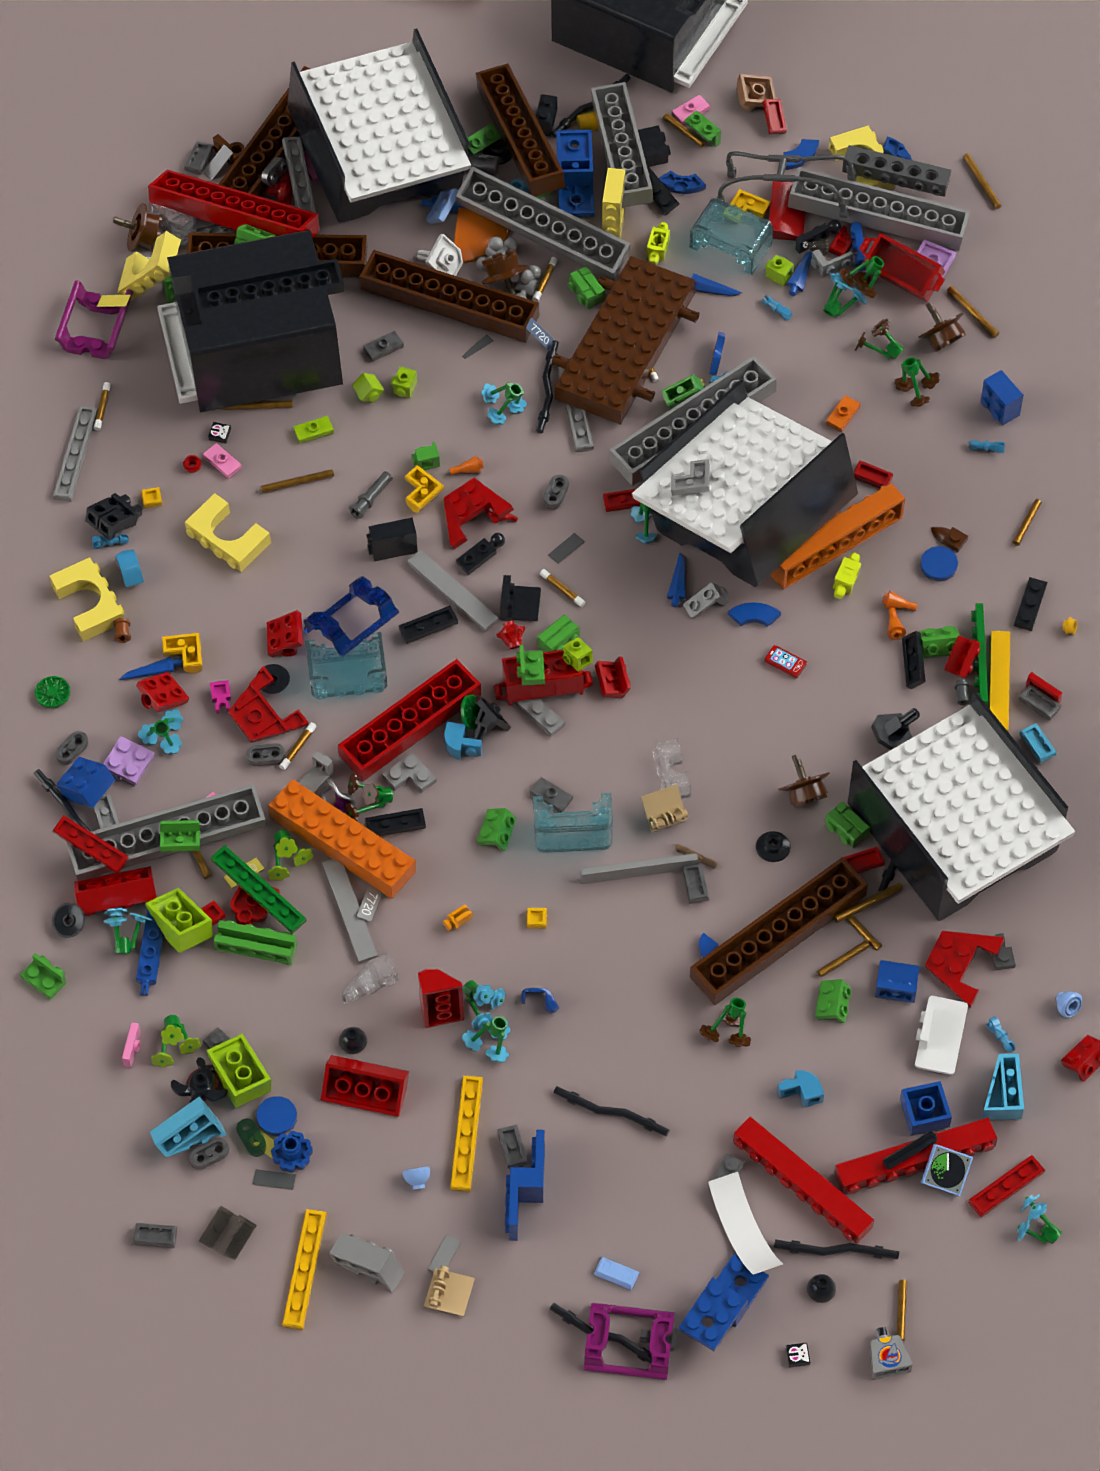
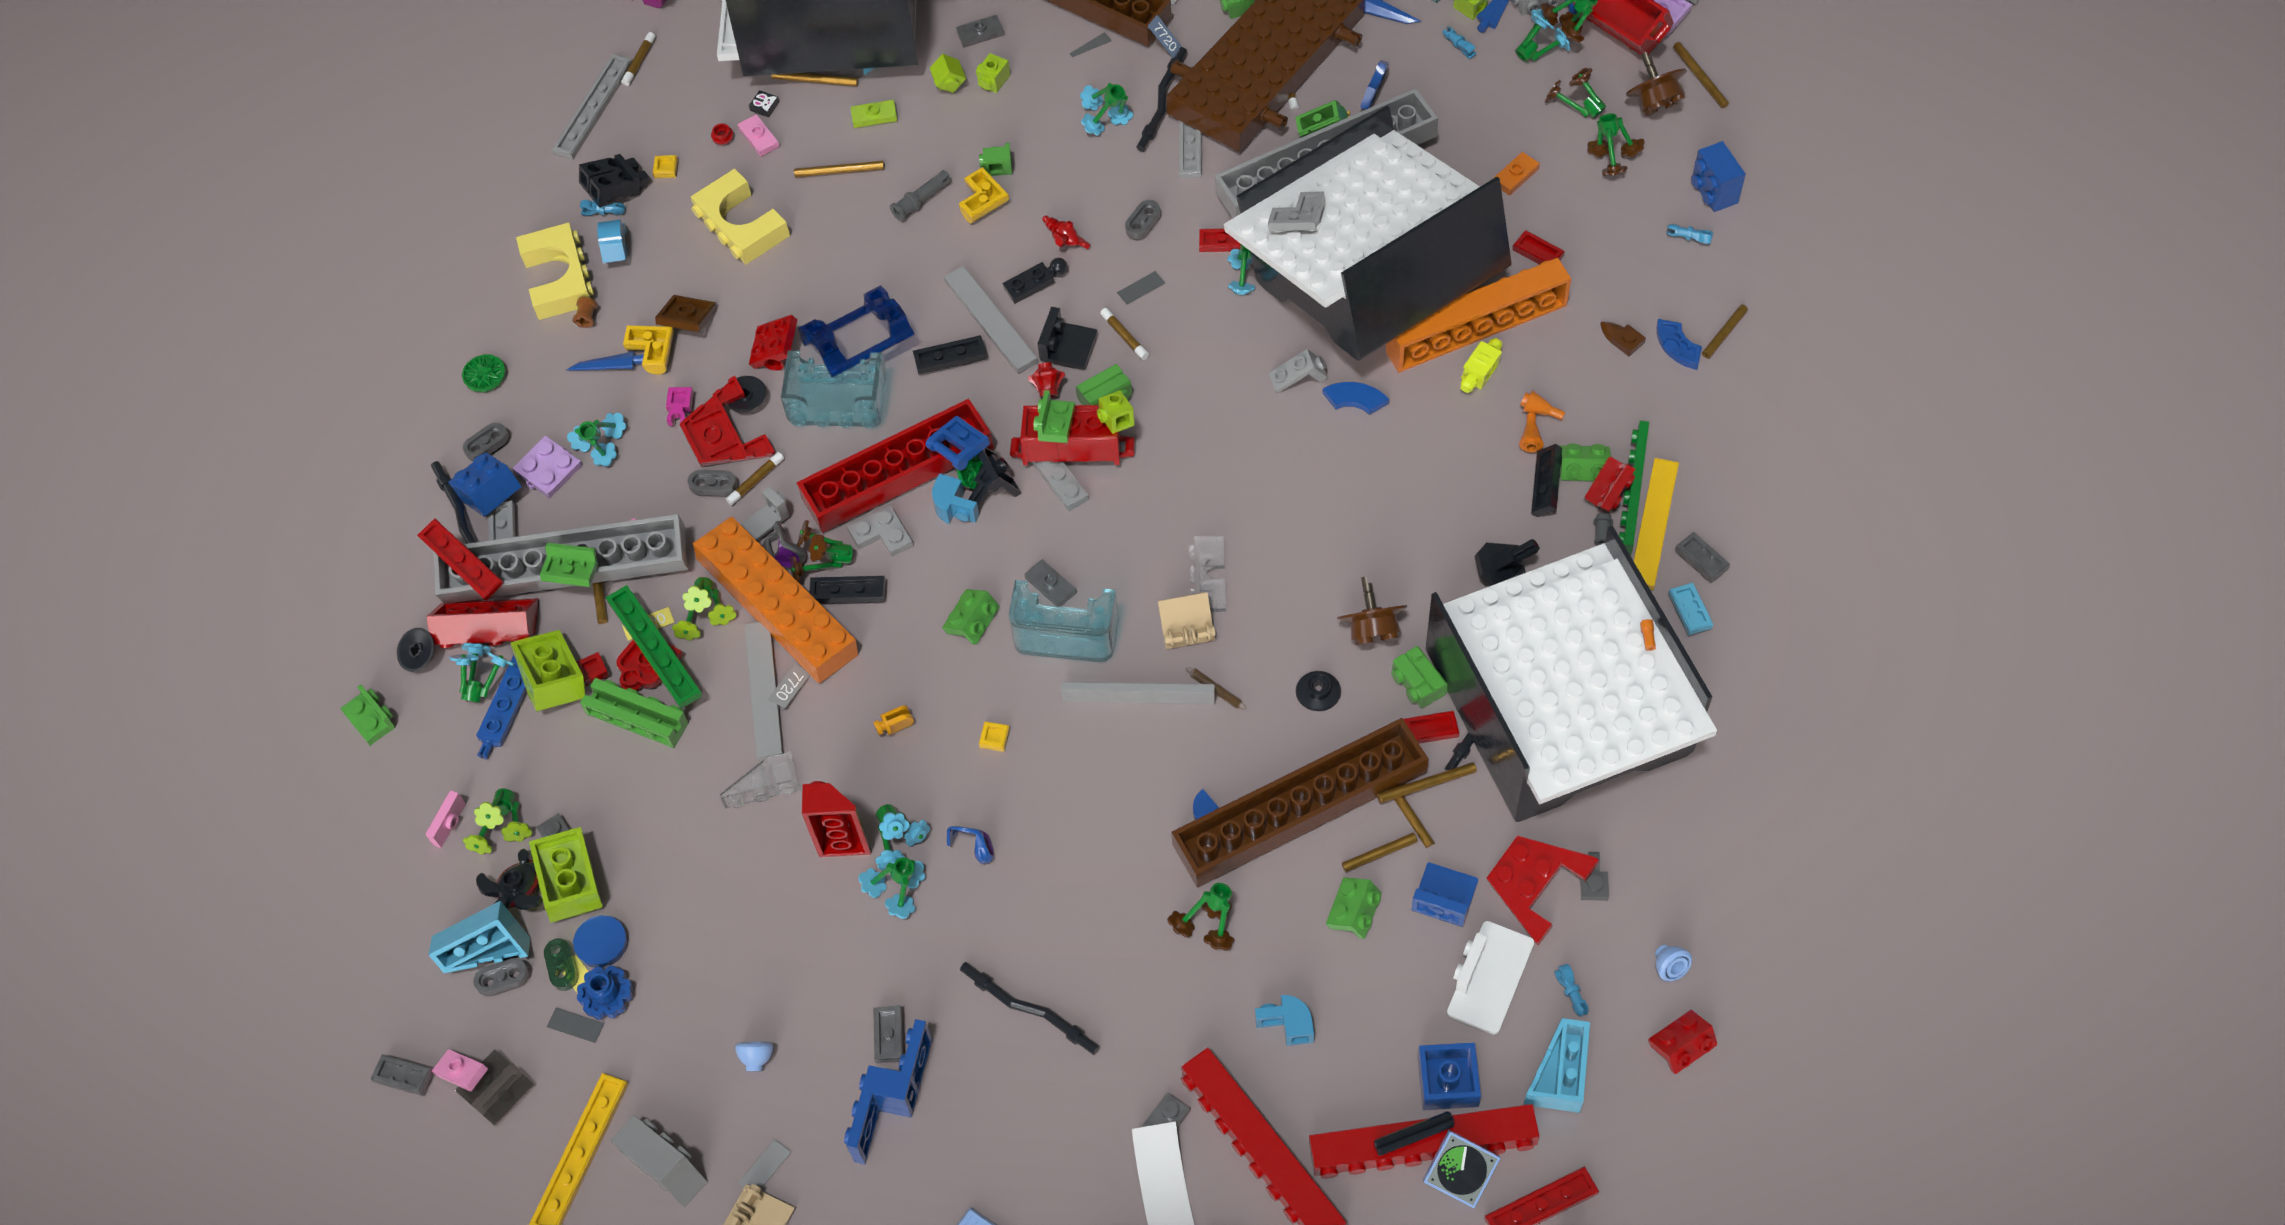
camera: 15 degrees right, 0 degrees up
(161, 692) = (608, 391): red plate -> none
(199, 1224) = (459, 1070): none -> bright pink plate
(206, 619) = (686, 313): none -> reddish brown tile
(353, 1040) = (723, 857): black brick -> none
(364, 1085) = (719, 919): red slope -> none
(392, 539) = (929, 248): black brick -> none
(462, 691) = (963, 437): none -> blue plate
(466, 504) = (1031, 219): red wing -> none
(466, 1133) = (834, 1007): yellow tile -> none
(472, 465) = (1049, 177): orange cone -> none
(613, 678) = (1159, 450): red bracket -> none
(677, 586) = (1266, 352): blue bar -> none
(695, 883) = (1206, 723): flat silver plate -> none
(785, 661) = (1382, 460): tile -> none
(939, 563) = (1602, 366): blue tile -> none
(992, 537) = (1677, 345): none -> blue tile
(1013, 765) = (1647, 629): none -> orange piece
(1030, 604) = (1711, 432): black plate -> none
(1044, 687) = (1712, 538): red tile -> none
(1070, 626) = (1758, 466): yellow plate -> none

